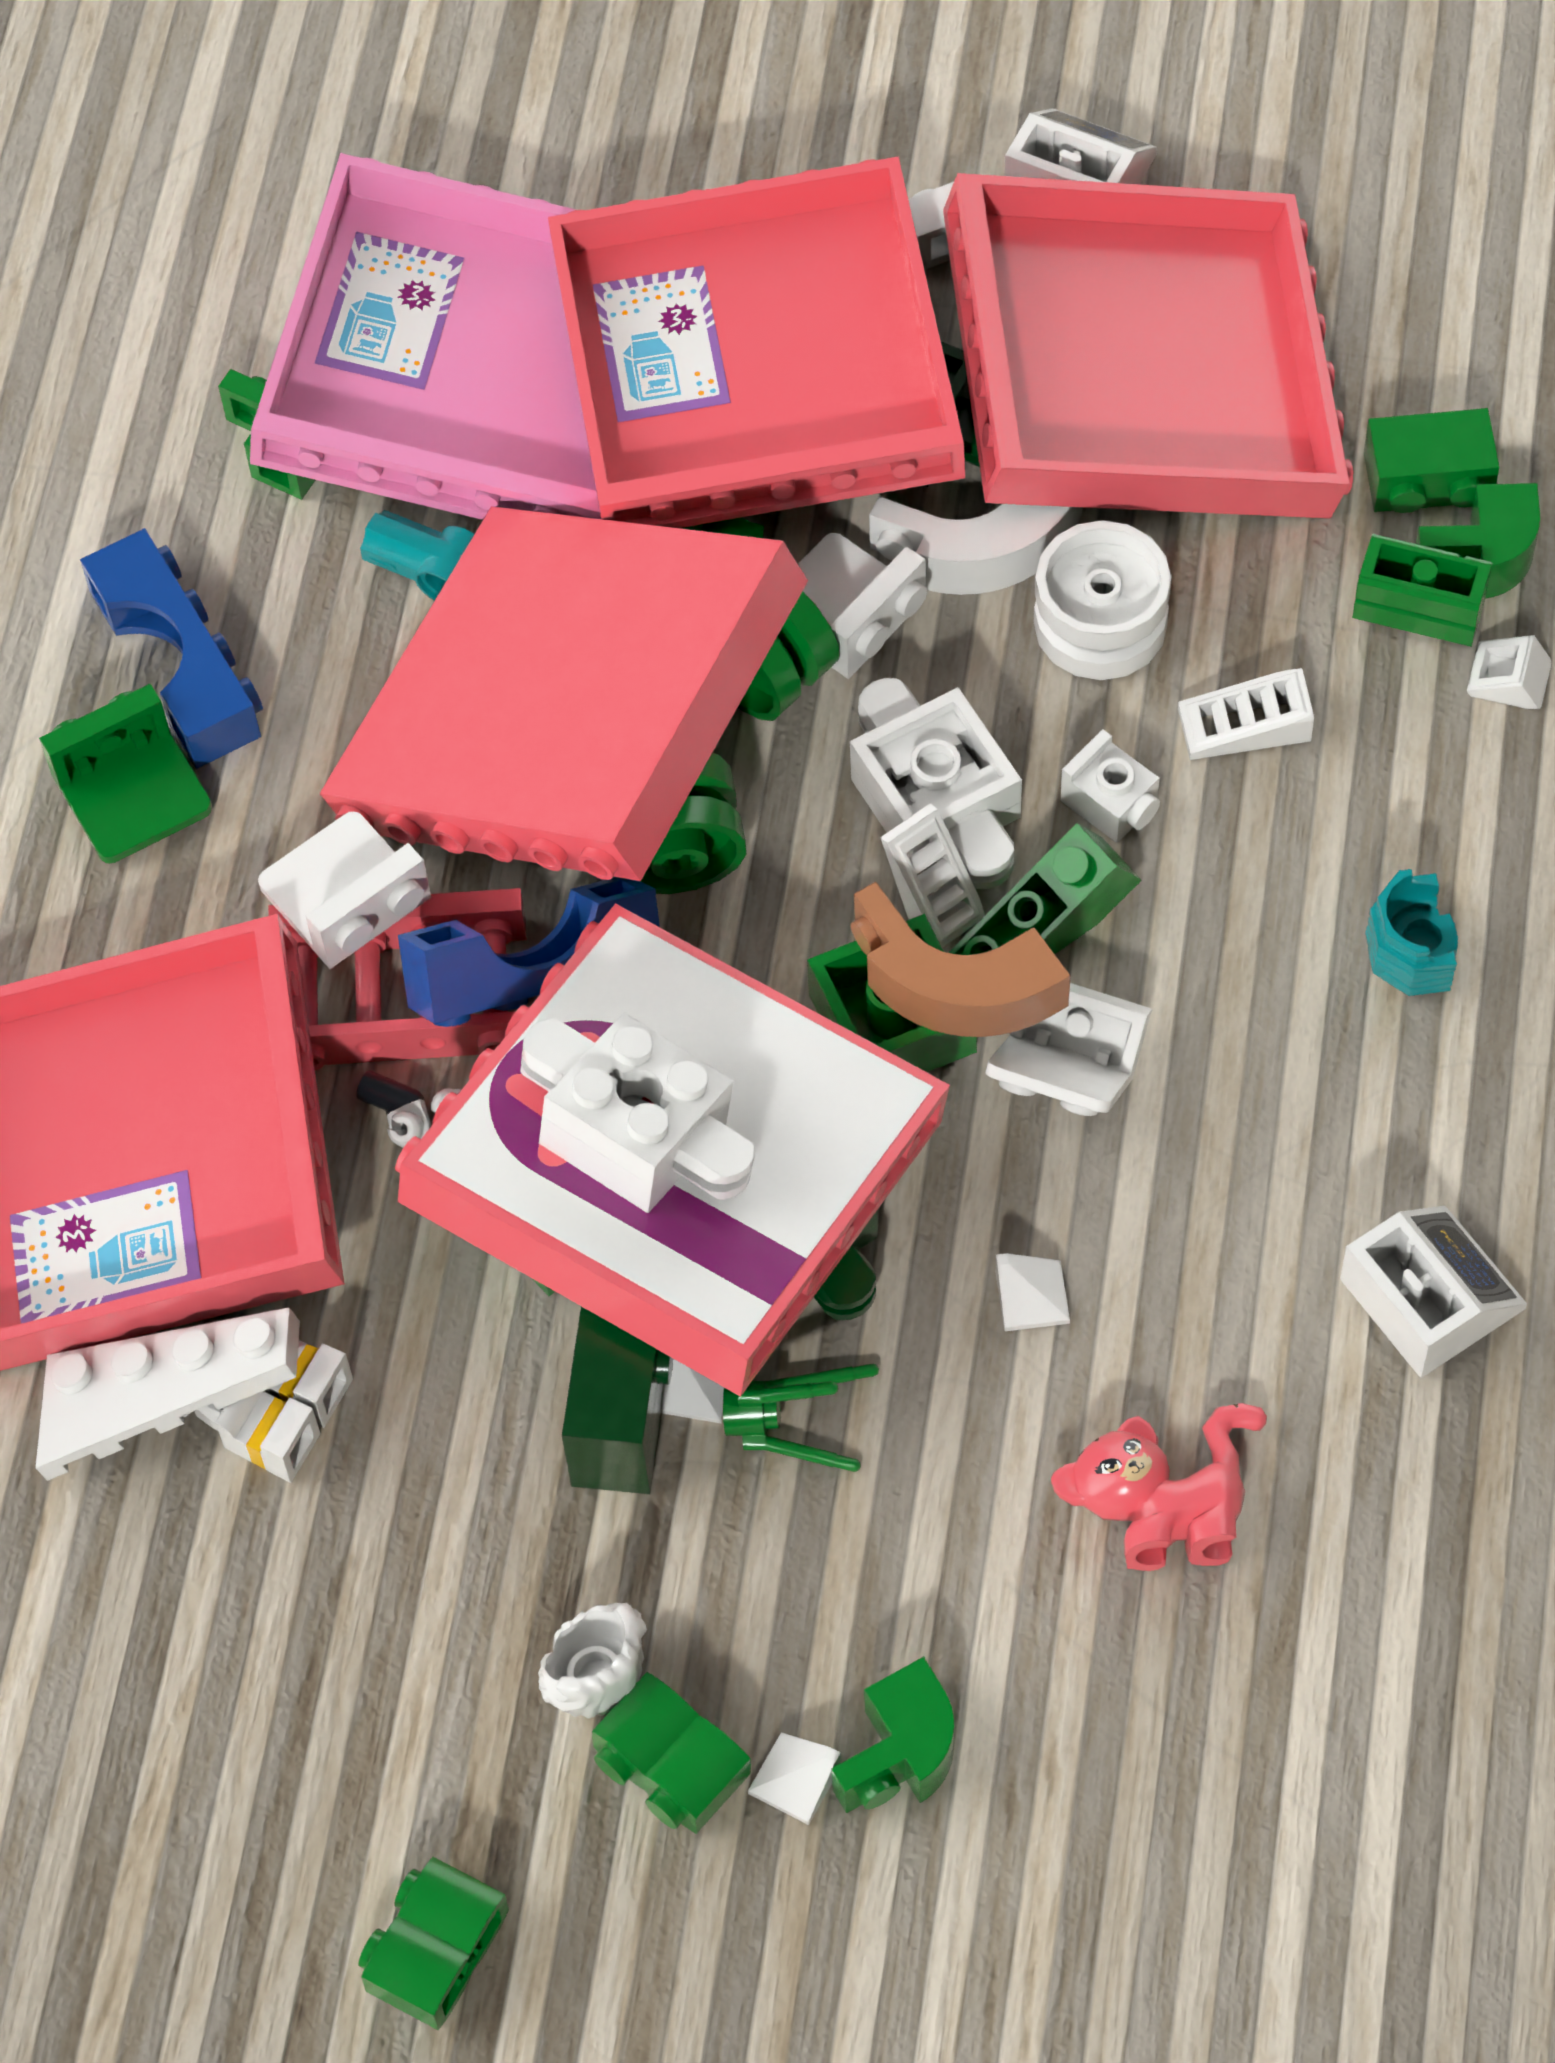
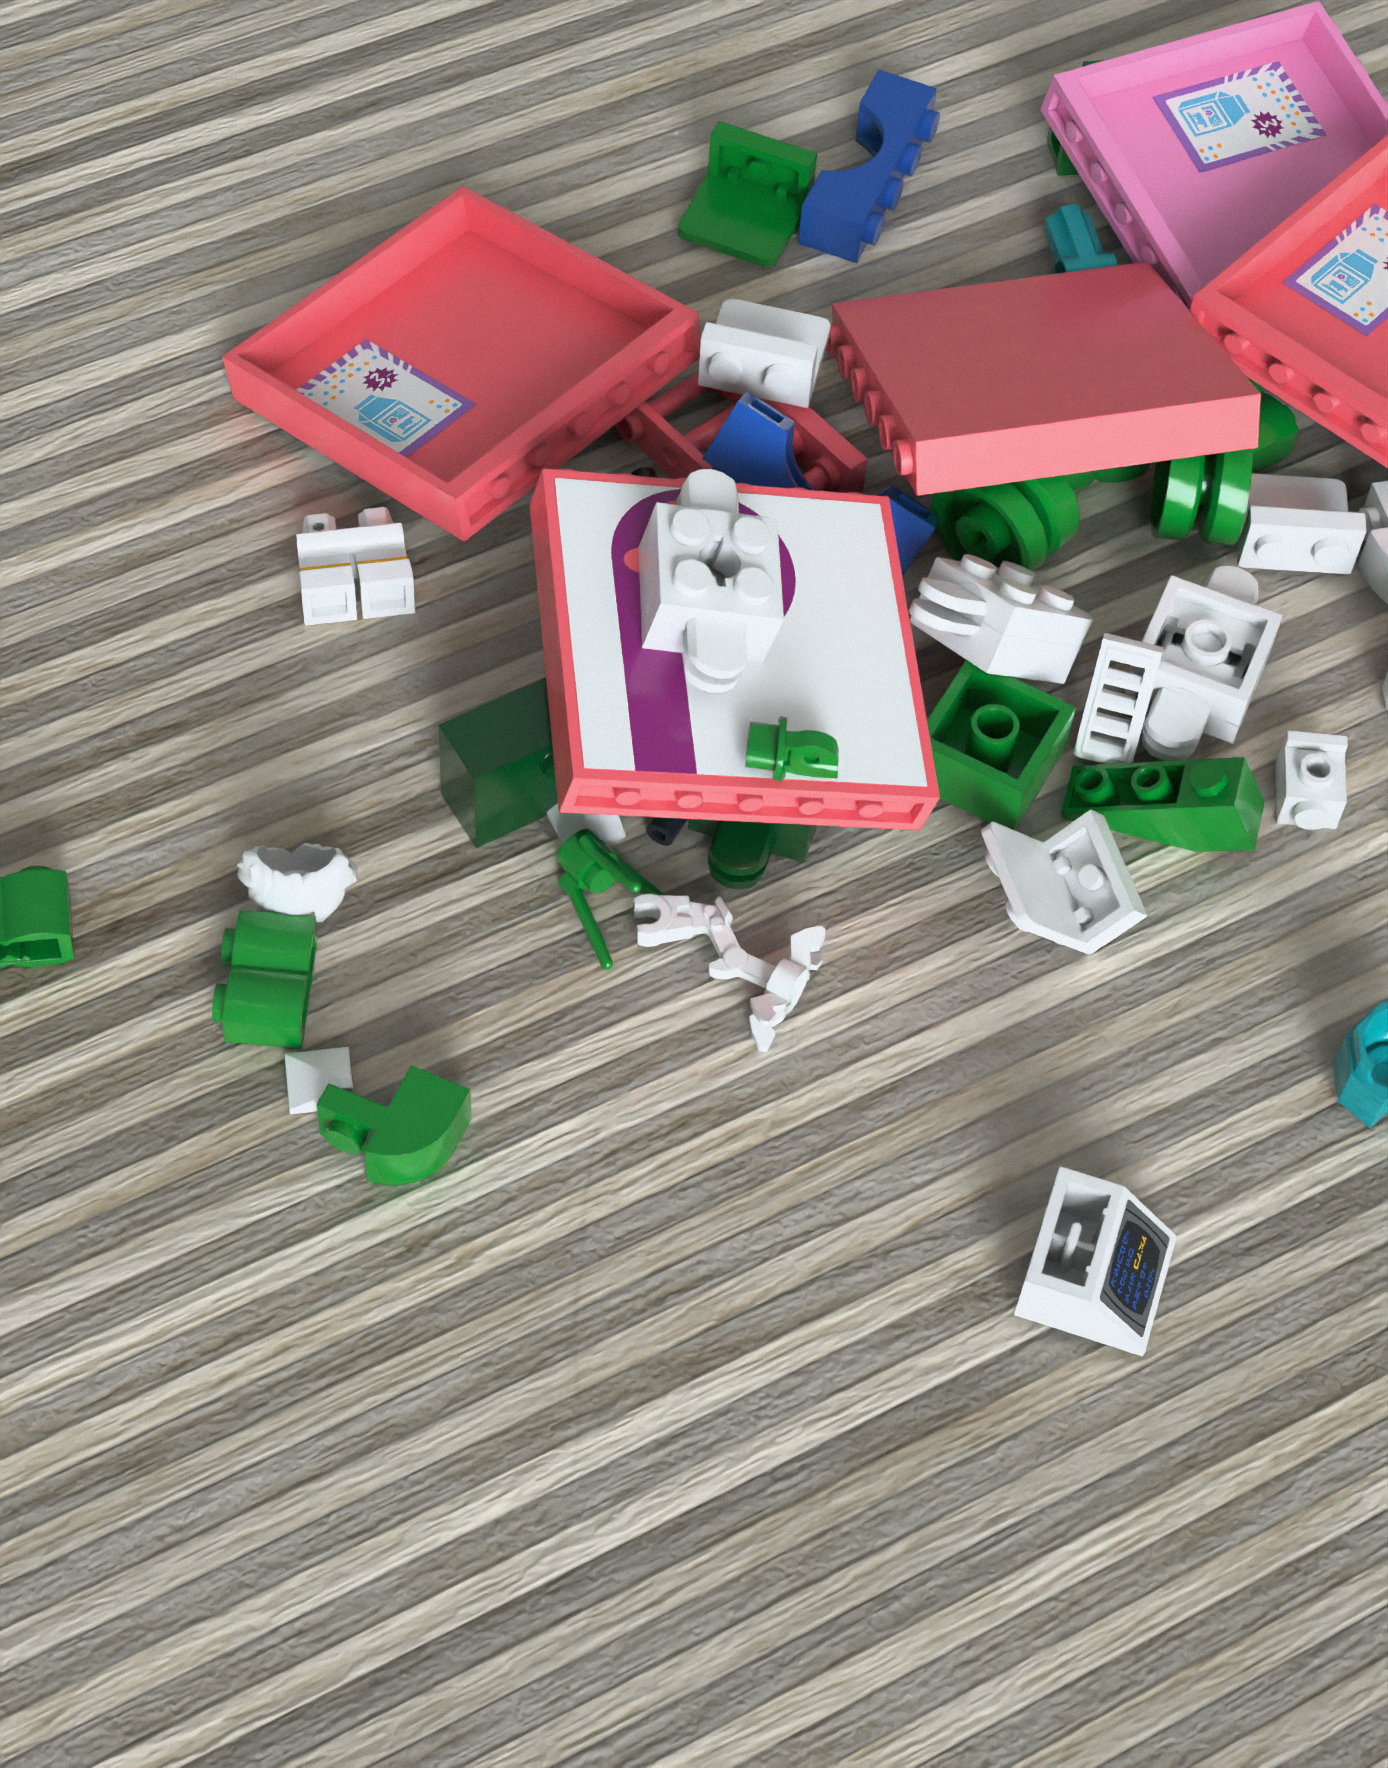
camera: 45 degrees right, 5 degrees down
(156, 1380) = (302, 484): white wing -> none
(786, 904) = (1000, 618): none -> white brick
(833, 1179) = (791, 751): none -> green piece
(864, 1373) = (782, 983): none -> white piece
(955, 992) = (1026, 764): nougat arch -> none
(1031, 1292) = (847, 990): white slope -> none
(1128, 1480) = (742, 1151): coral animal -> none

